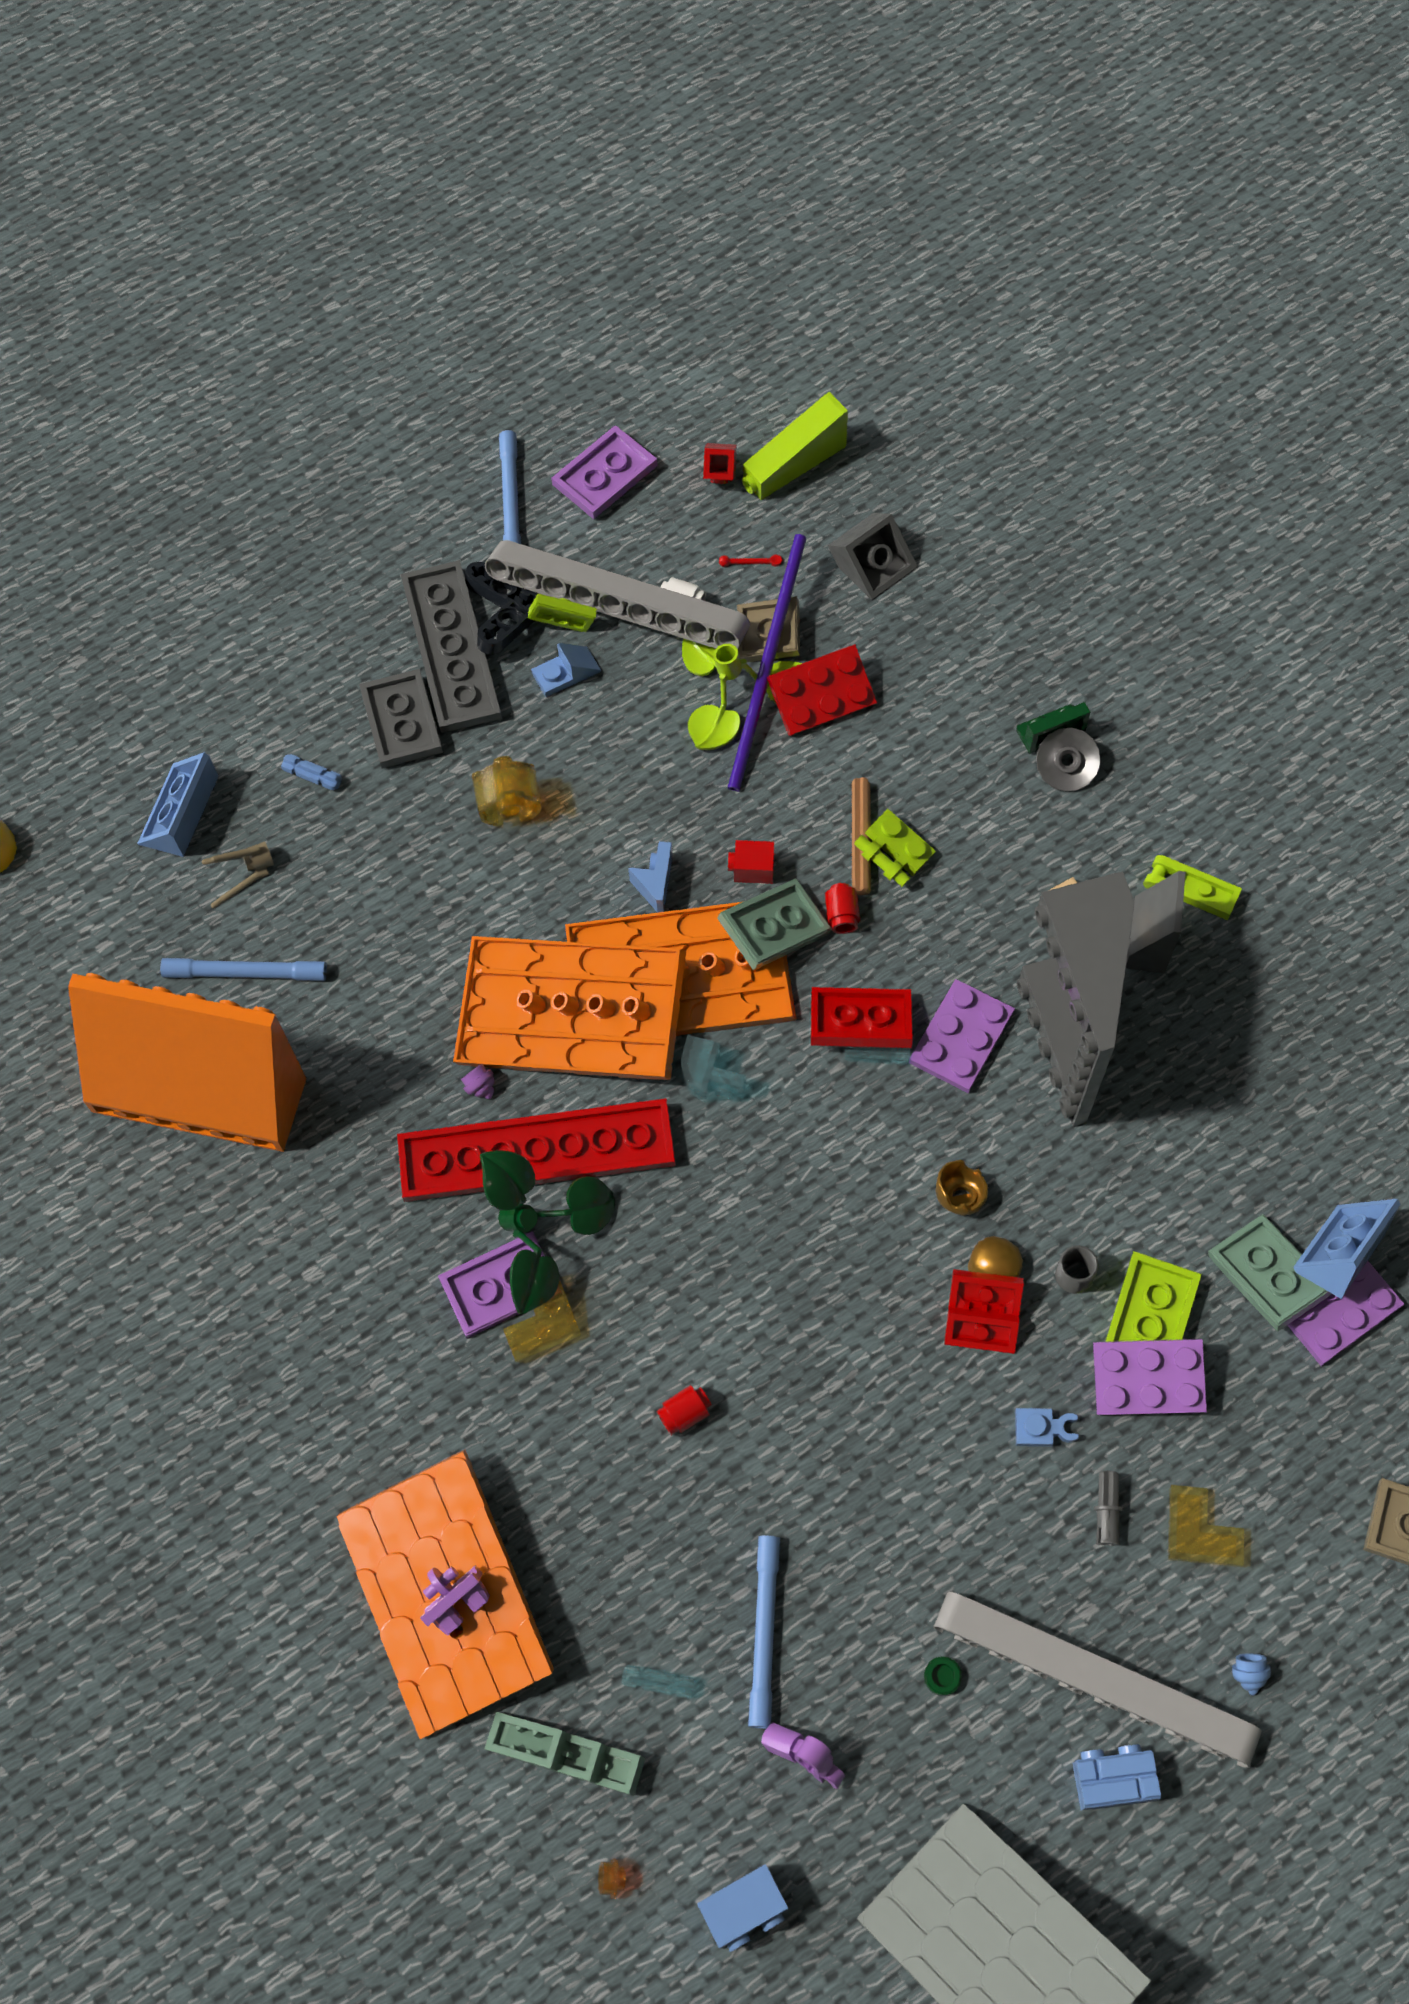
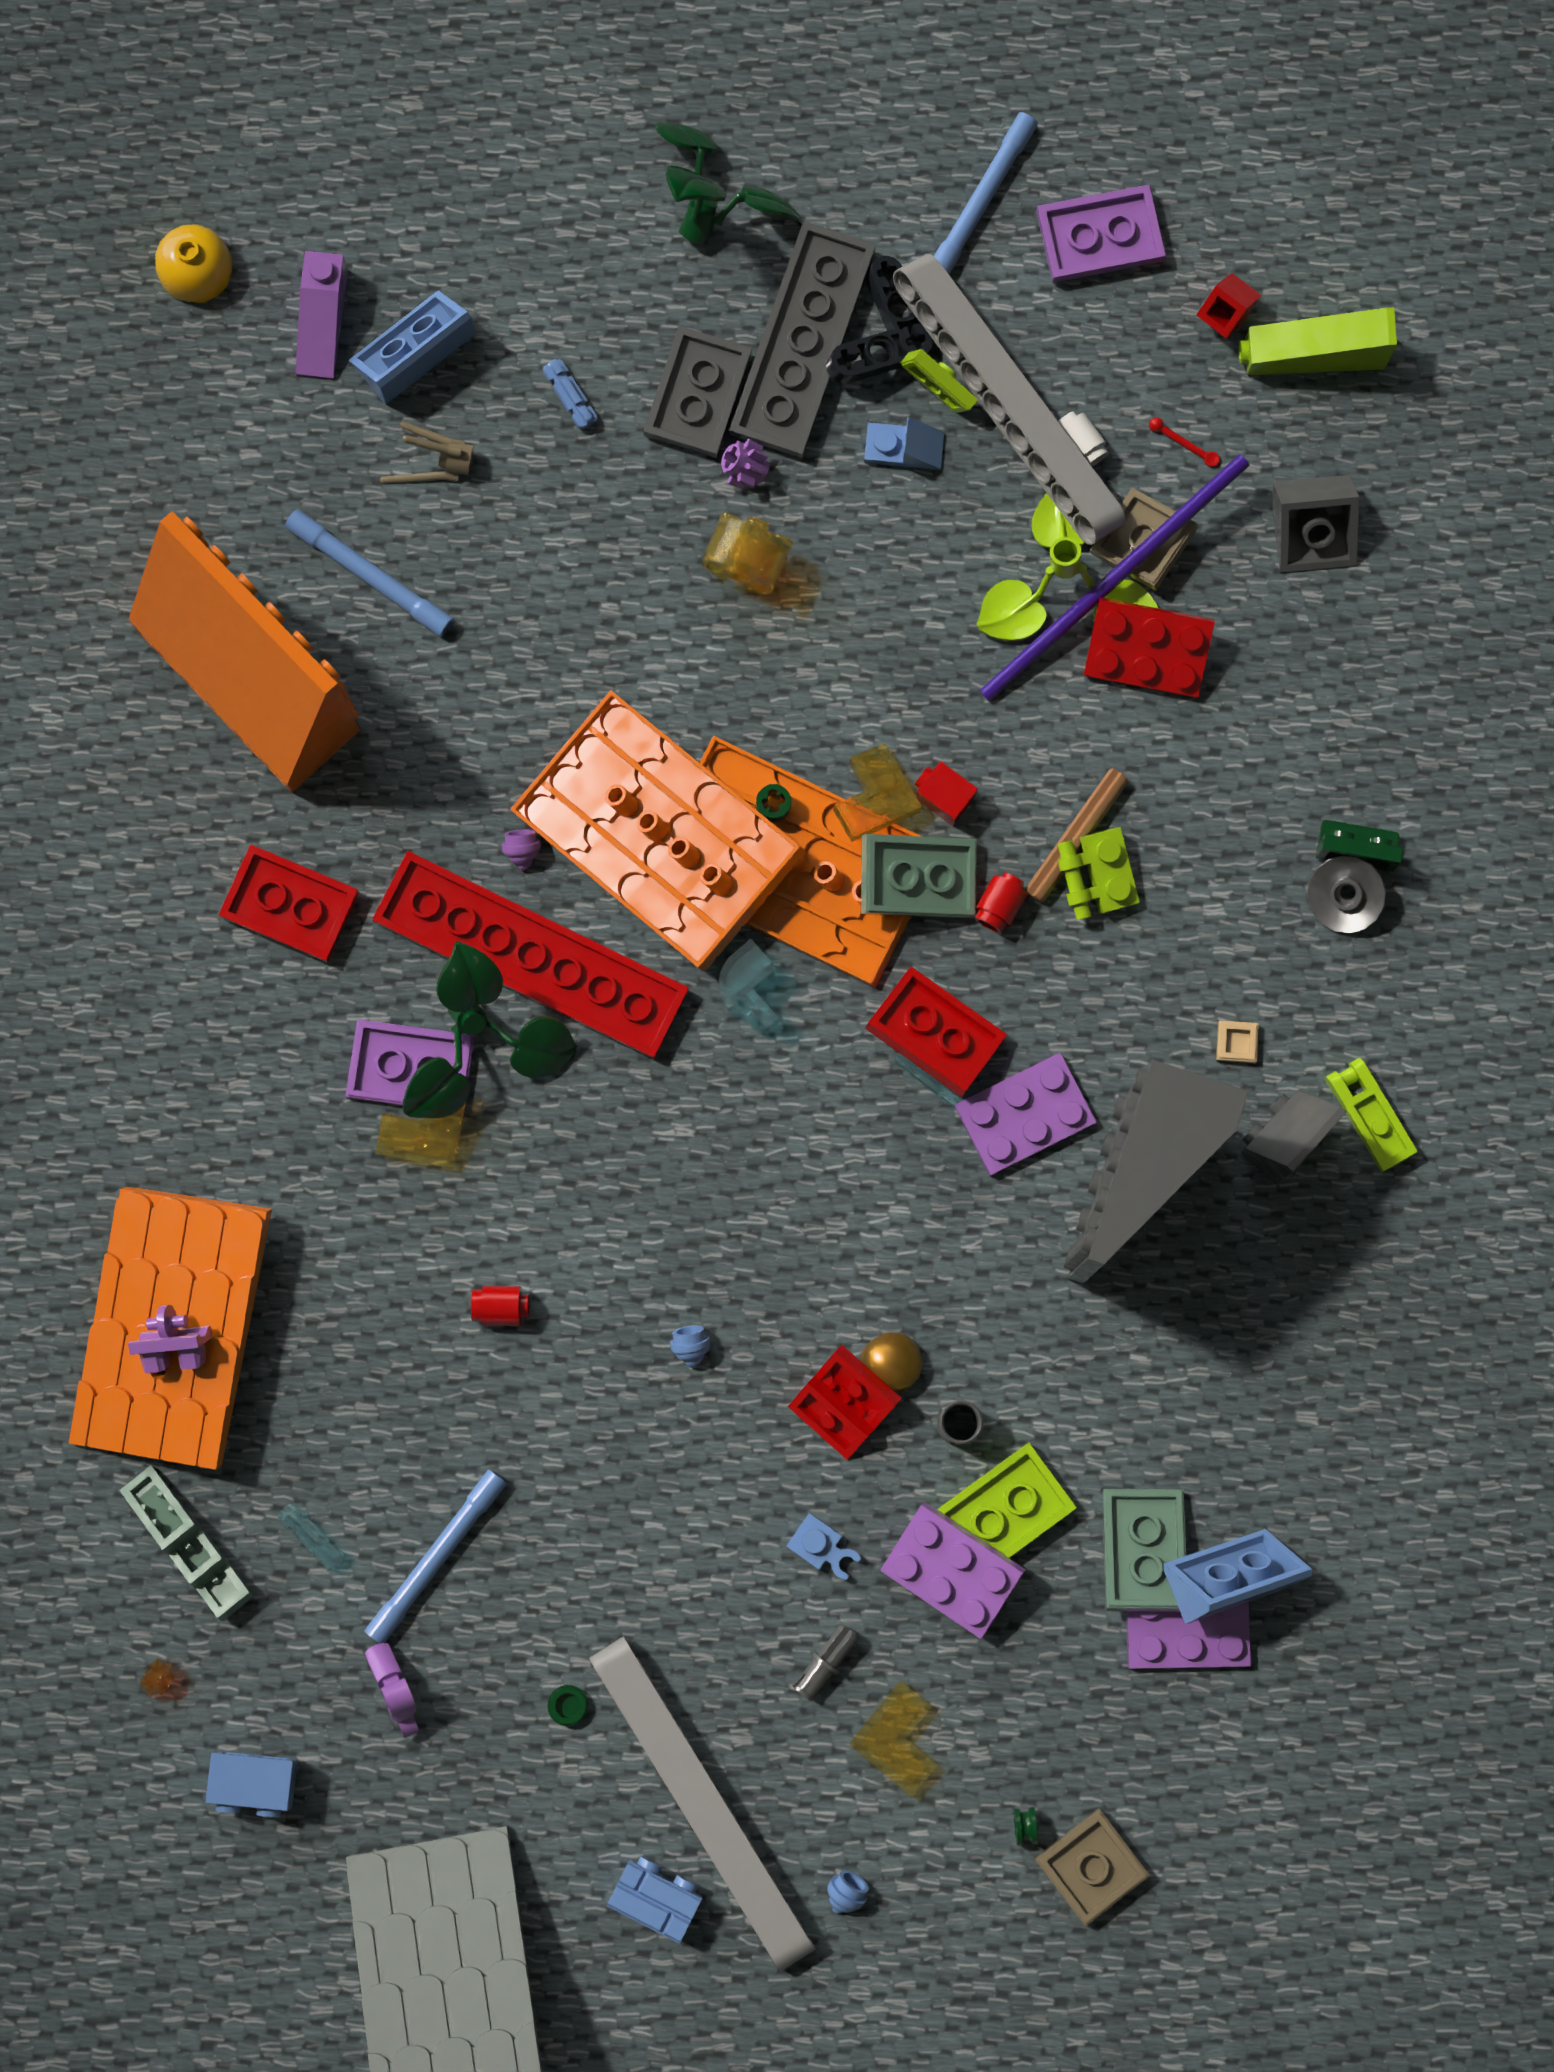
camera: 30 degrees right, 15 degrees up
(97, 823) = (320, 313): none -> medium lavender slope
(326, 608) = (690, 185): none -> dark green plant
(332, 1227) = (289, 903): none -> red plate
(465, 741) = (745, 464): none -> medium lavender gear
(638, 929) = (784, 808): none -> dark green bush
(654, 881) = (832, 752): medium blue slope -> none
(712, 891) = (885, 797): none -> clear yellow tile
(843, 1345) = (690, 1344): none -> medium blue plate
(956, 1177) = (914, 1254): pearl gold hair -> none
(1340, 1528) = (1025, 1826): none -> dark green bush

